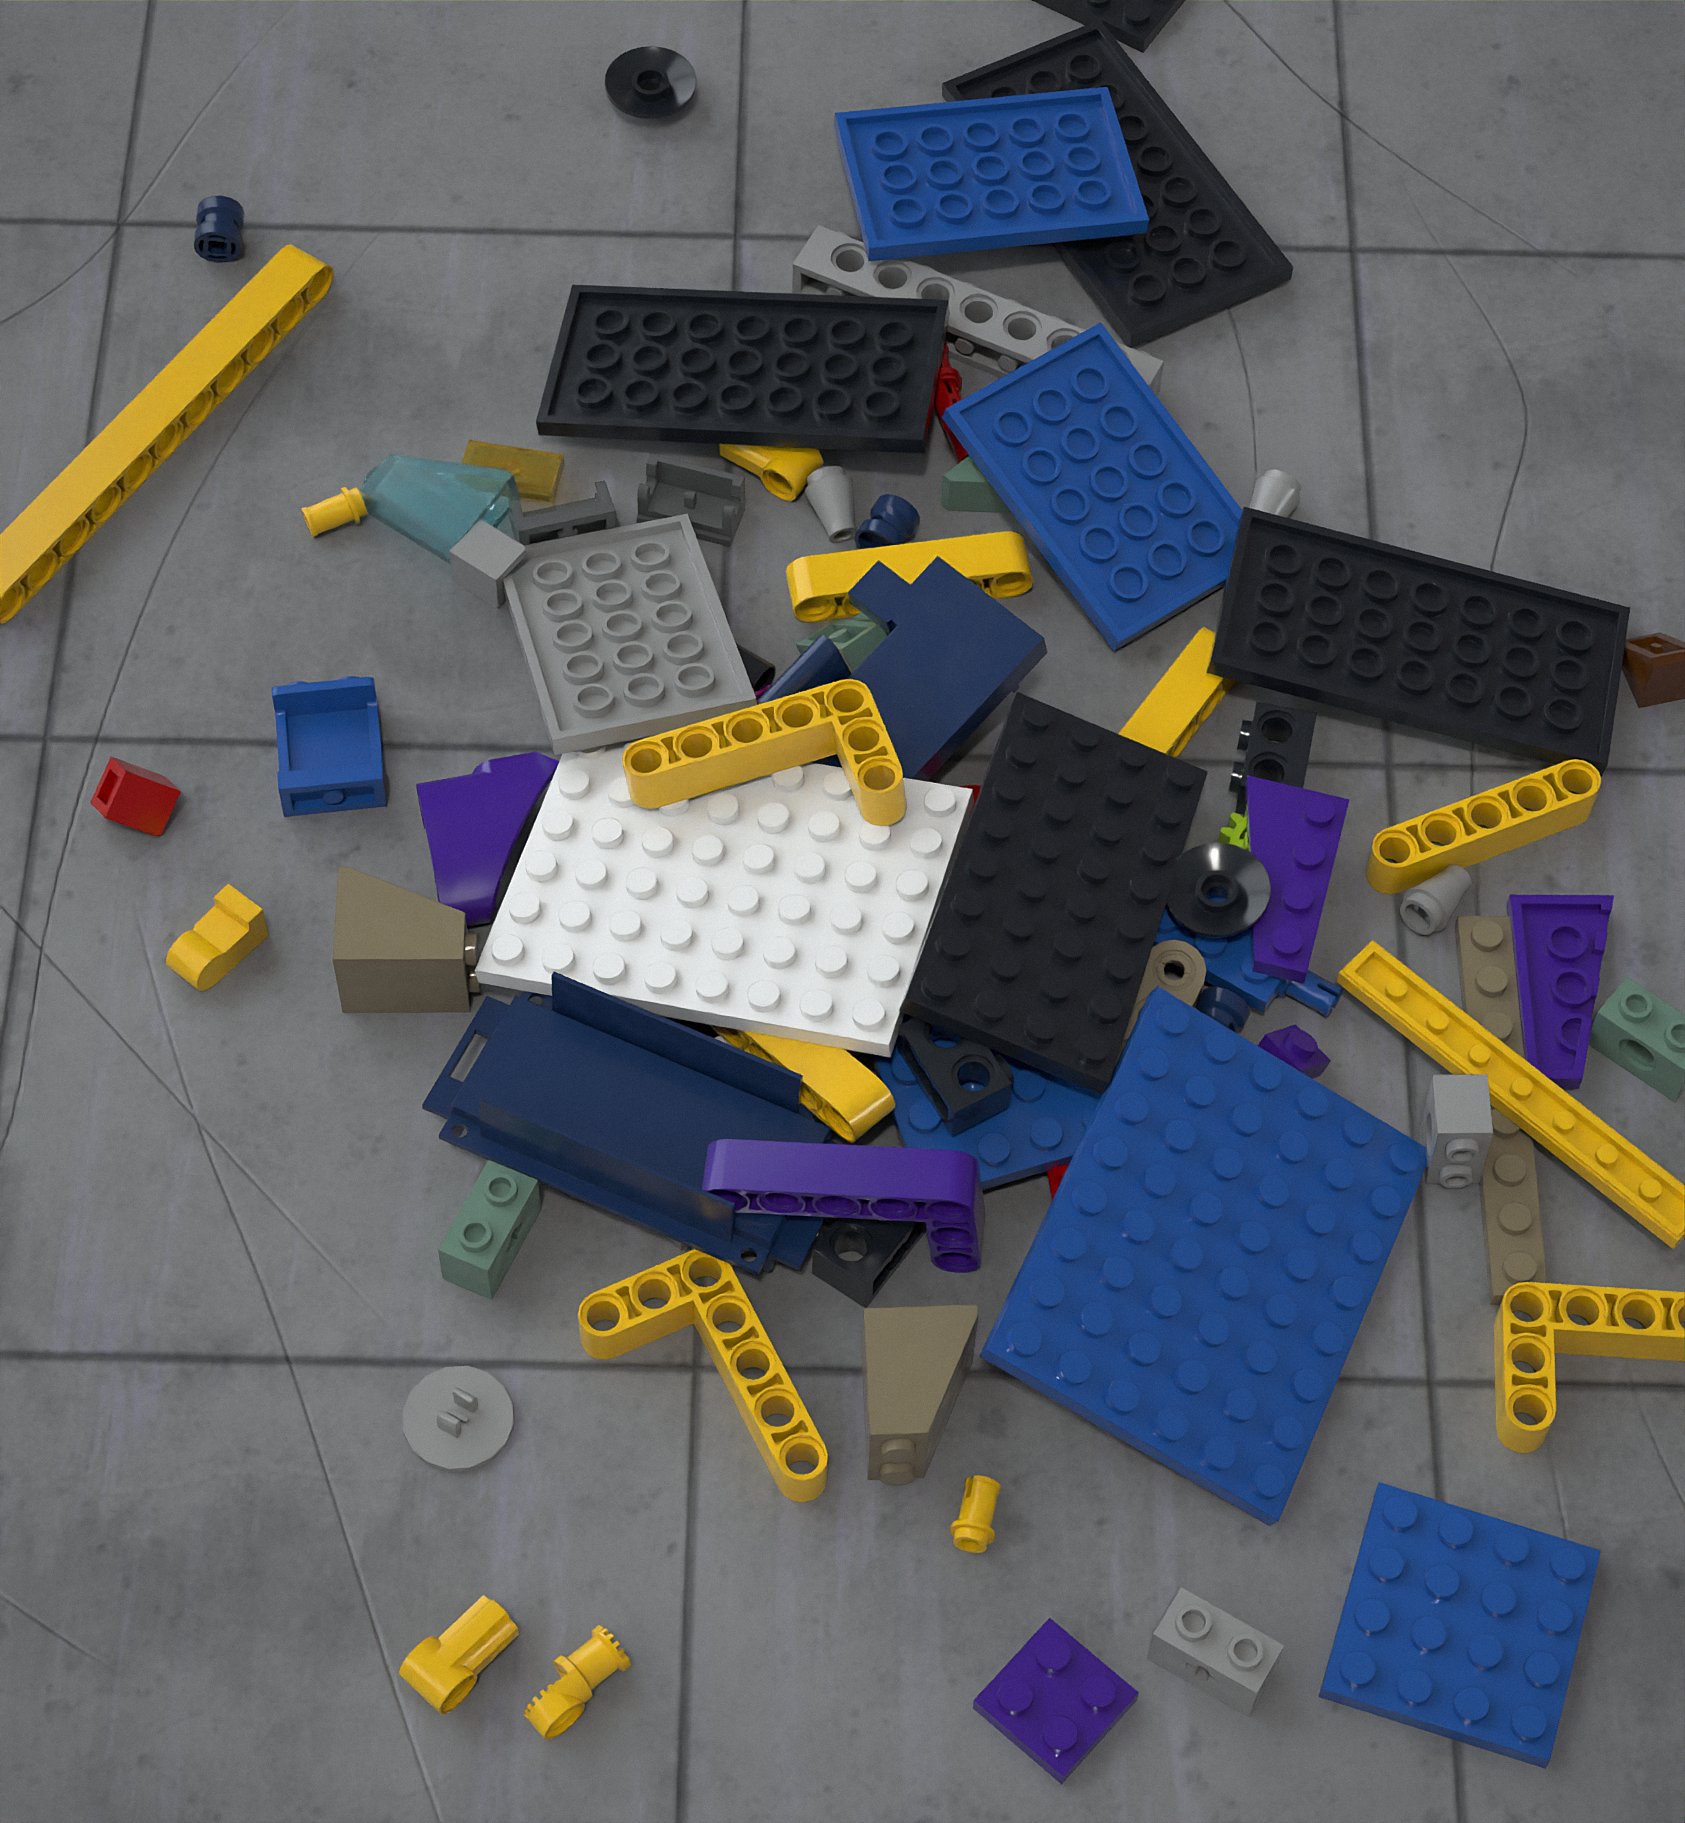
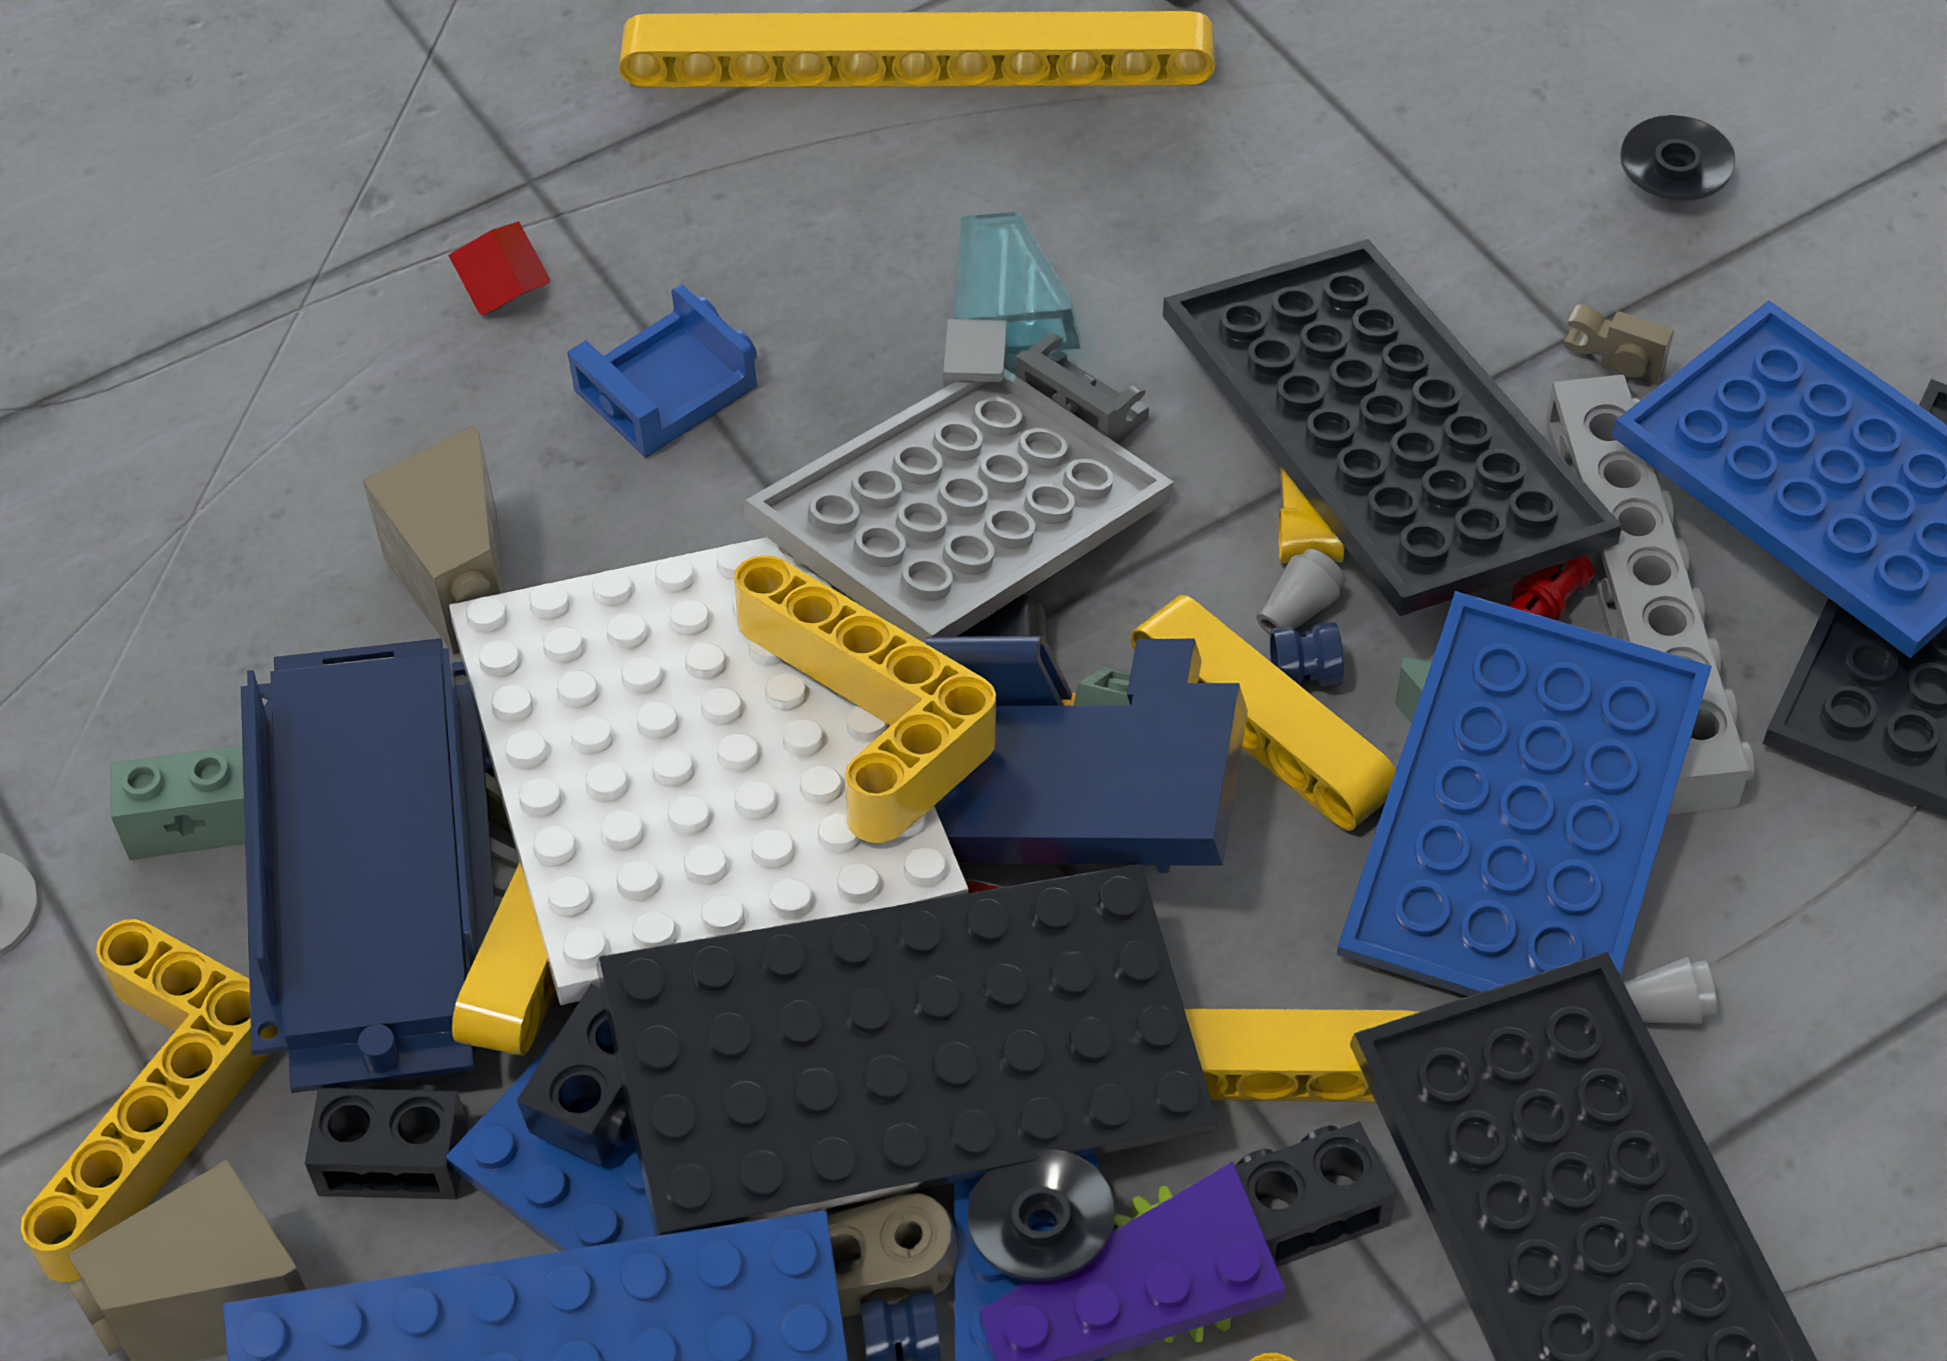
camera: 60 degrees right, 5 degrees down
(218, 940) = (383, 415): yellow leg -> none
(335, 511) = (934, 222): yellow pin -> none
(475, 826) = (636, 514): dark purple panel -> none
(534, 471) = (1108, 323): clear yellow plate -> none
(707, 495) = (1205, 489): dark grey hinge -> none
(782, 211) = (1626, 342): none -> dark tan plate
(859, 1184) = (384, 1085): dark purple beam -> none

